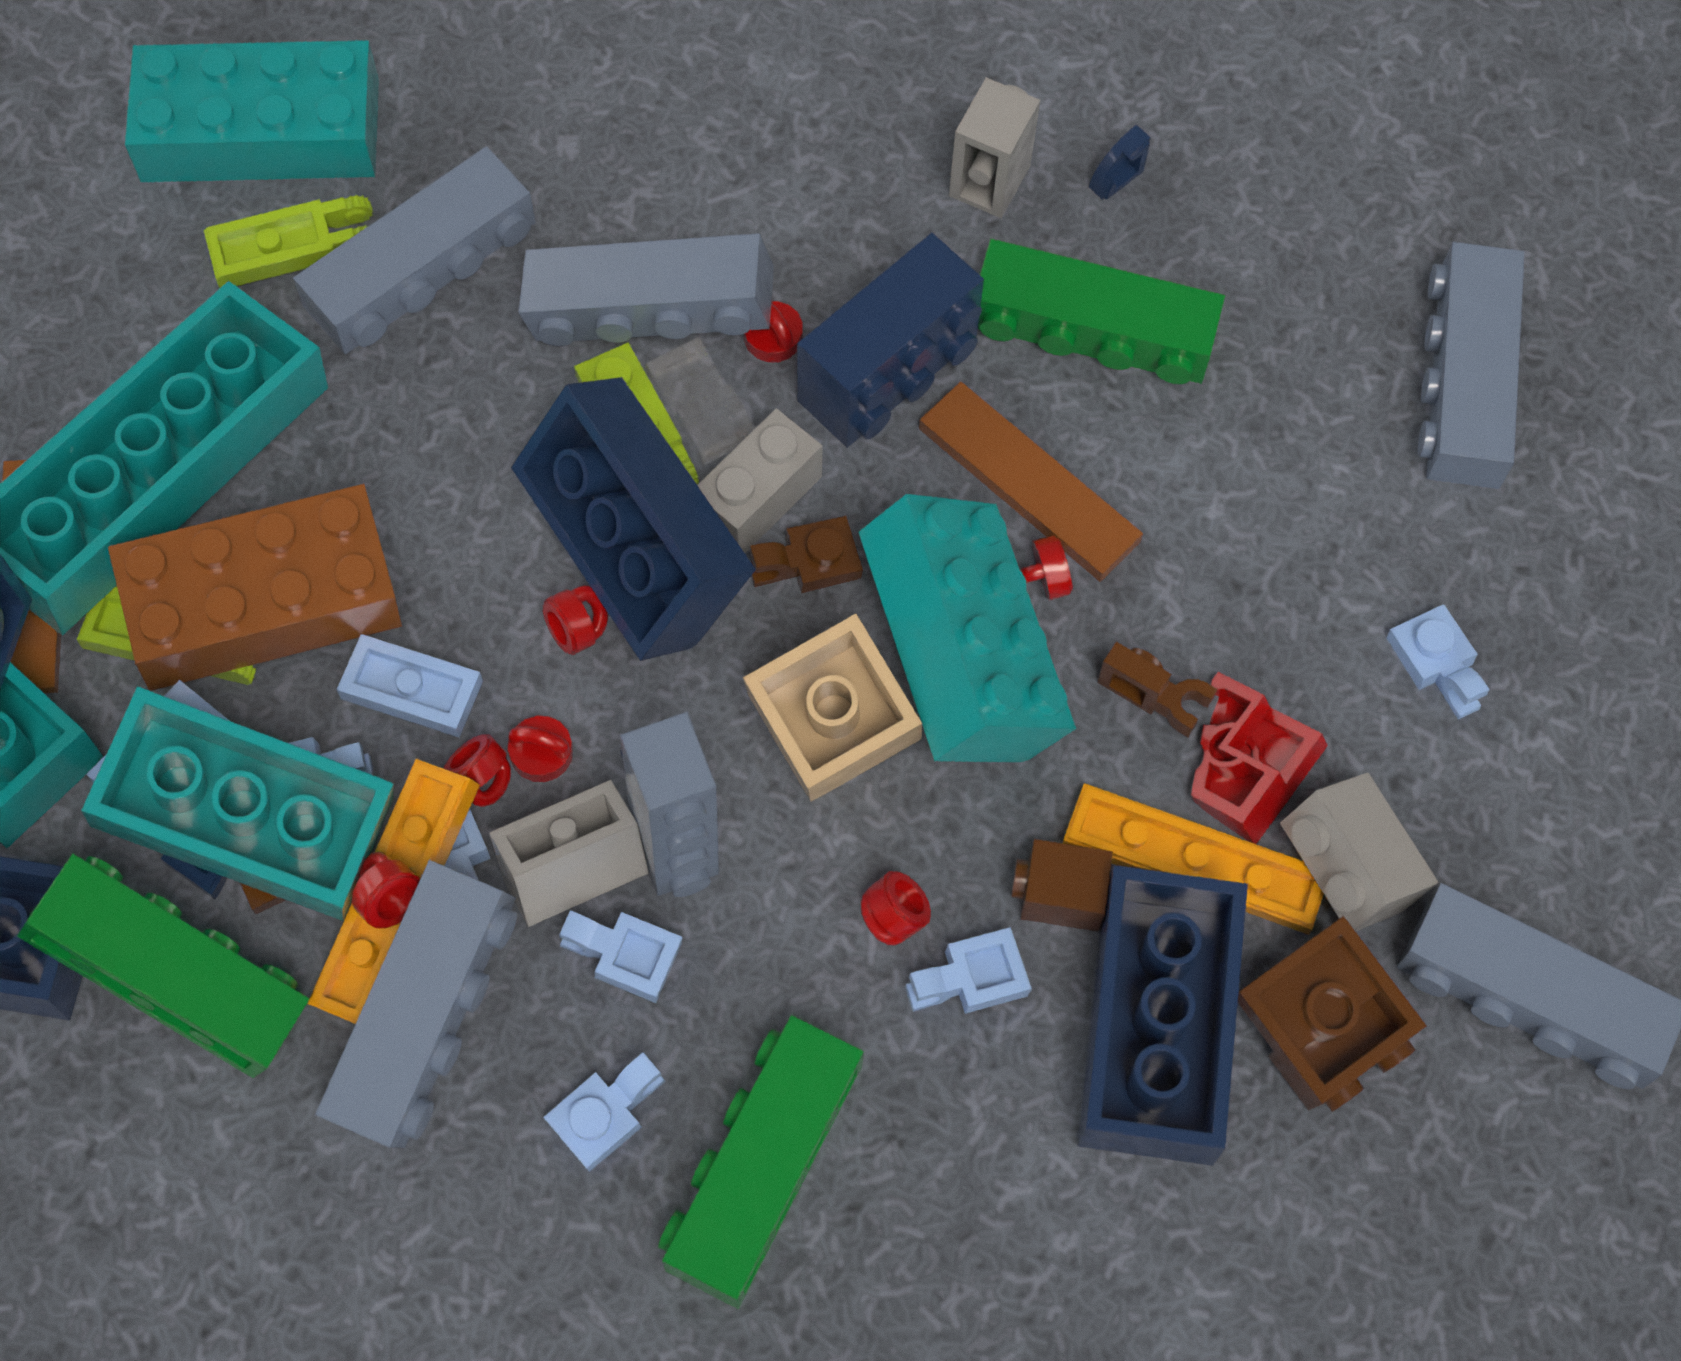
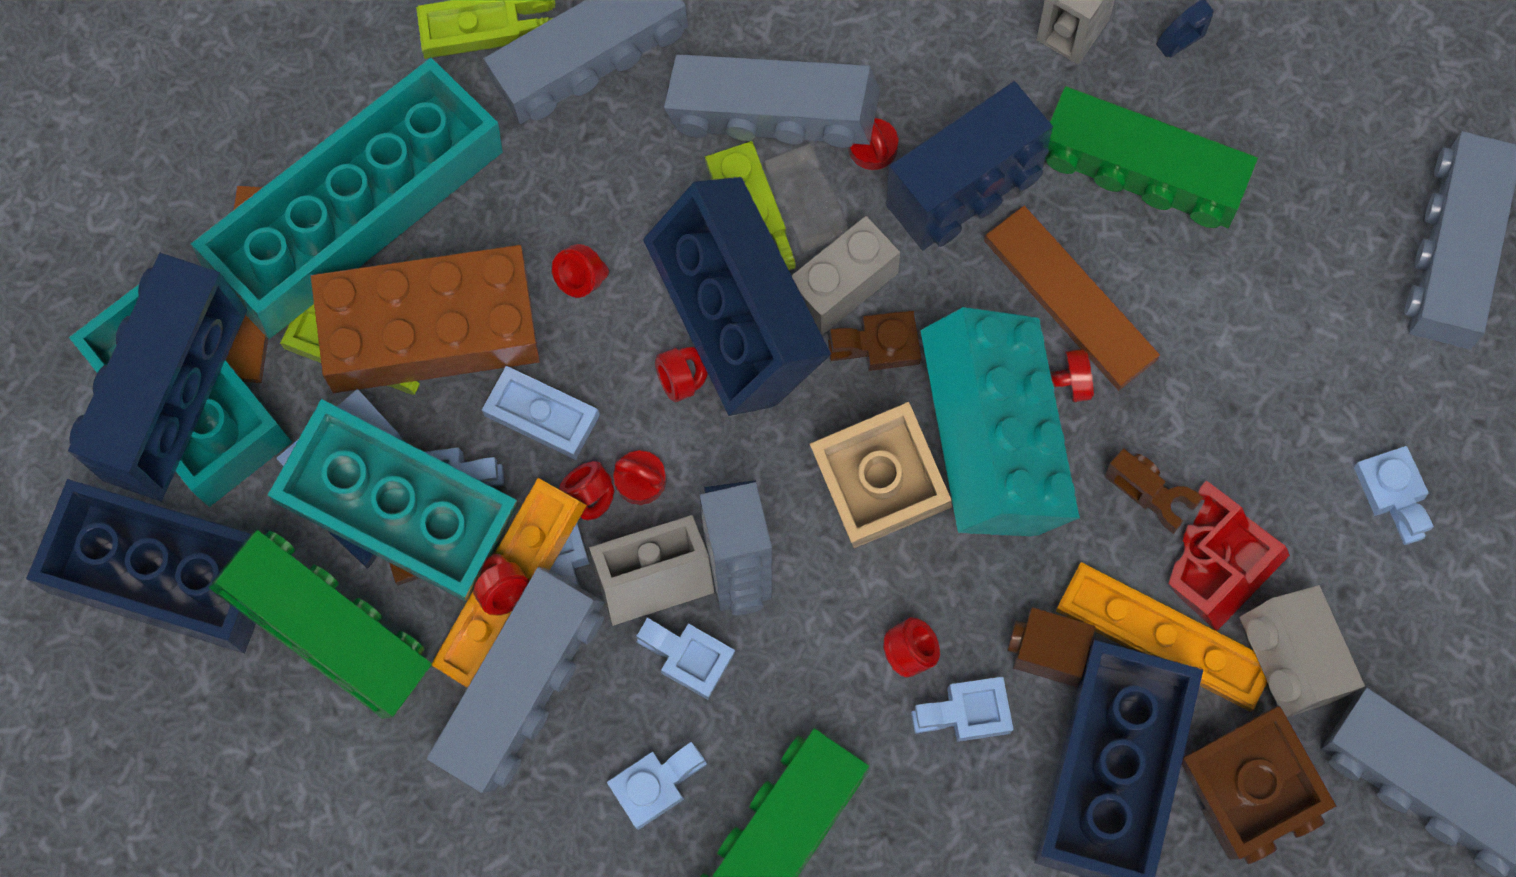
camera: 15 degrees right, 5 degrees up
(437, 513) = (578, 270): none -> red tile

